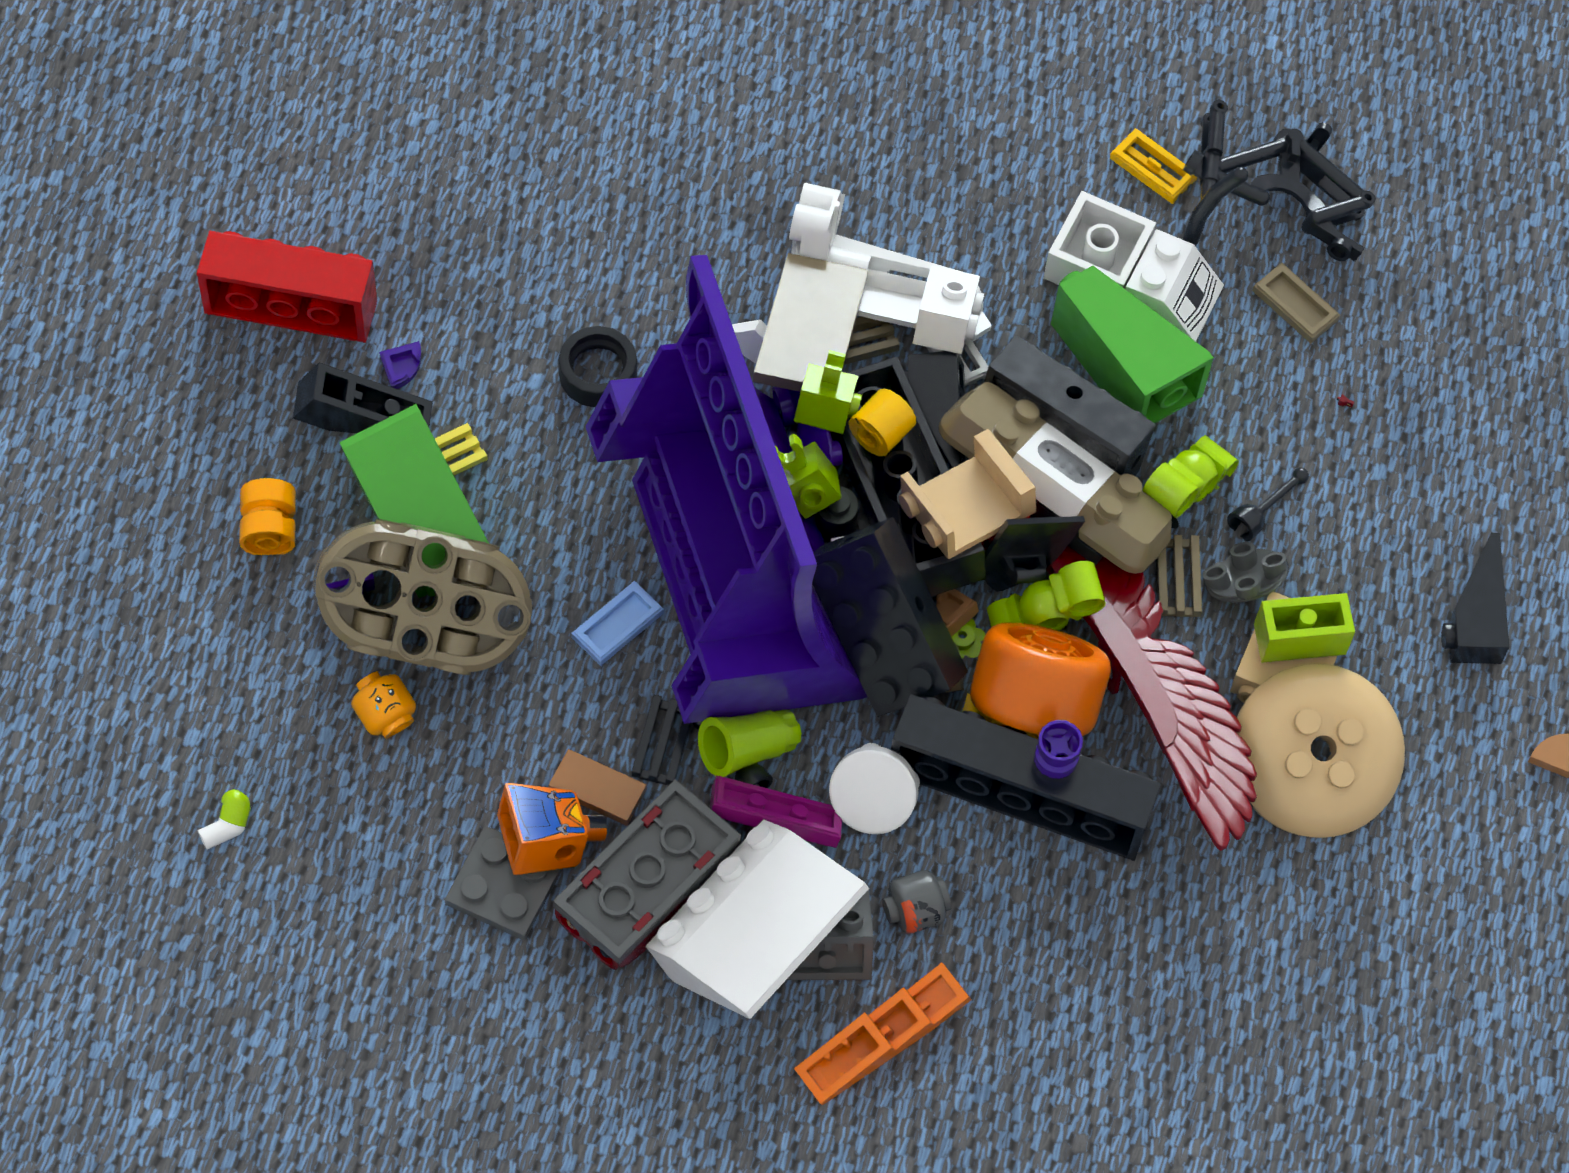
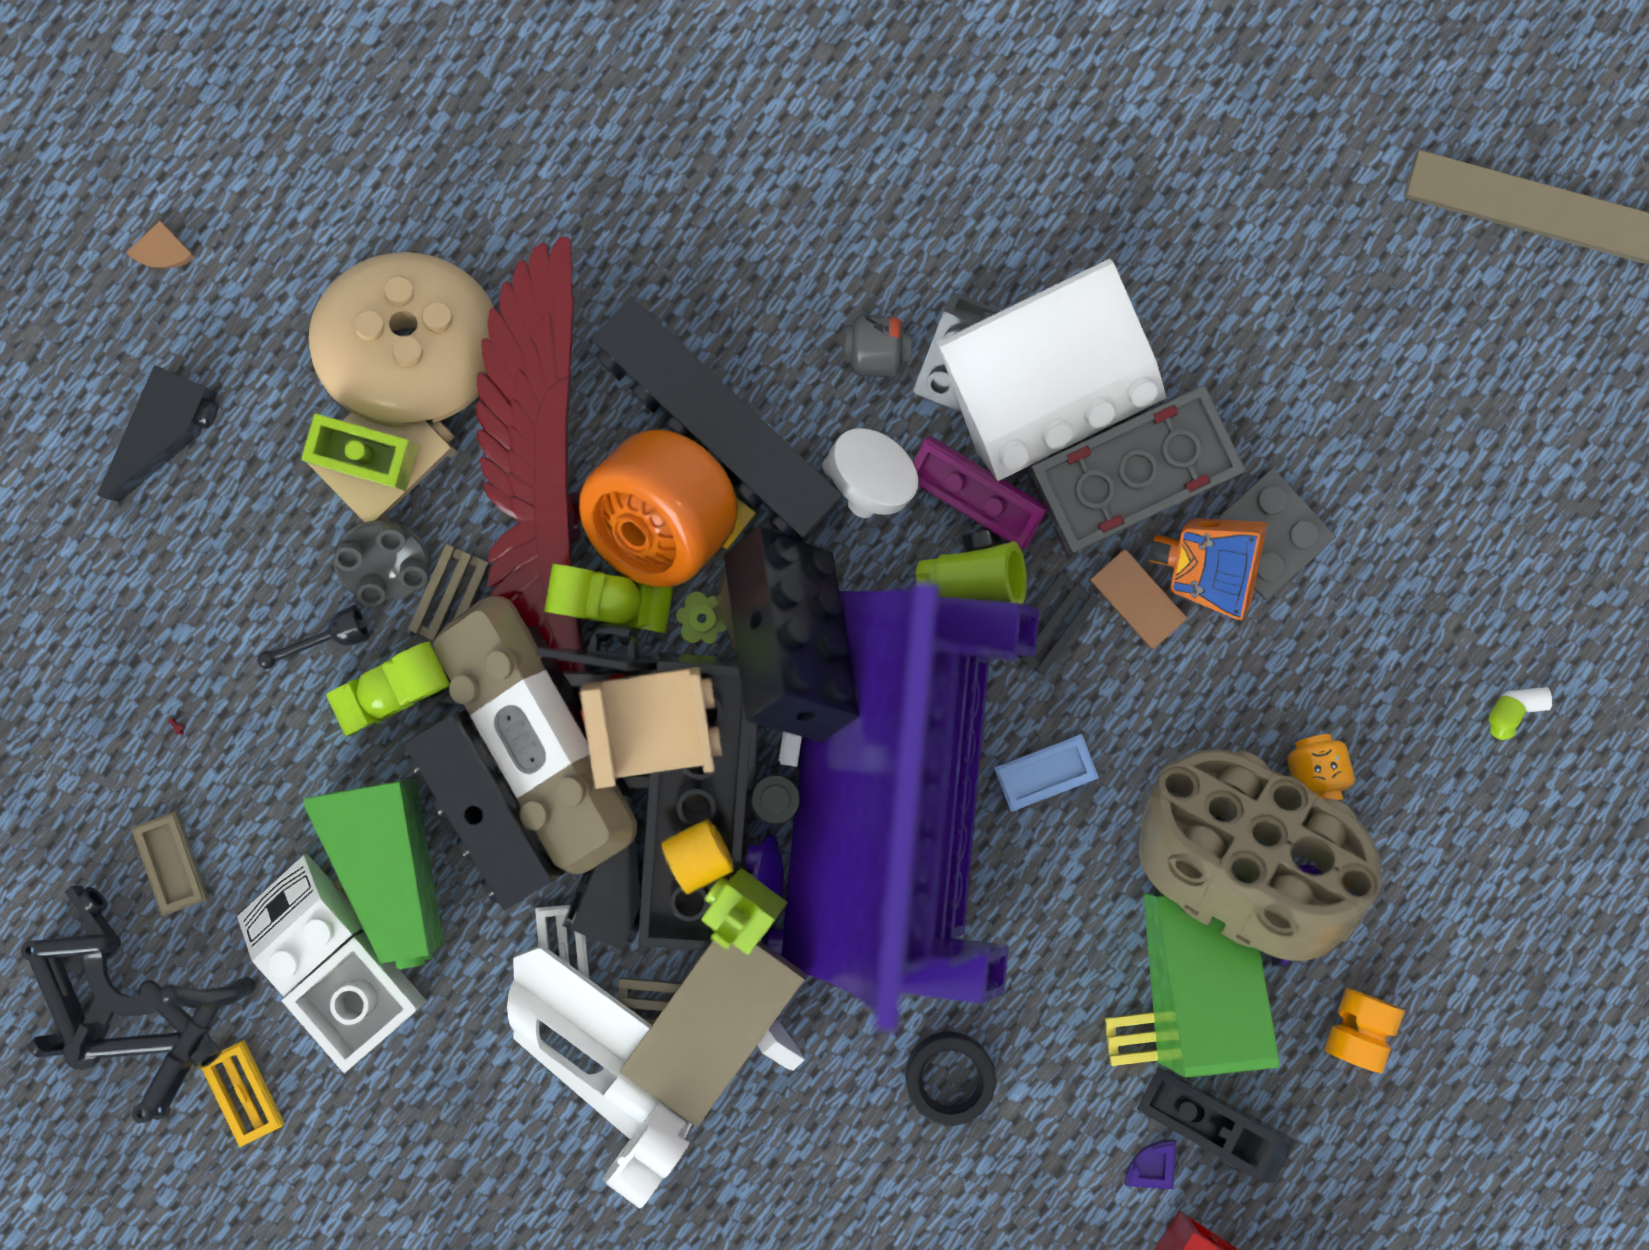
camera: 150 degrees left, 25 degrees up
(810, 477) = (799, 832): lime brick -> none
(882, 1034) = (966, 228): orange slope -> none
(948, 310) = (559, 981): white brick -> none
(956, 609) = (701, 640): medium nougat tile -> none
(1058, 739) = (681, 396): dark purple wheel -> none

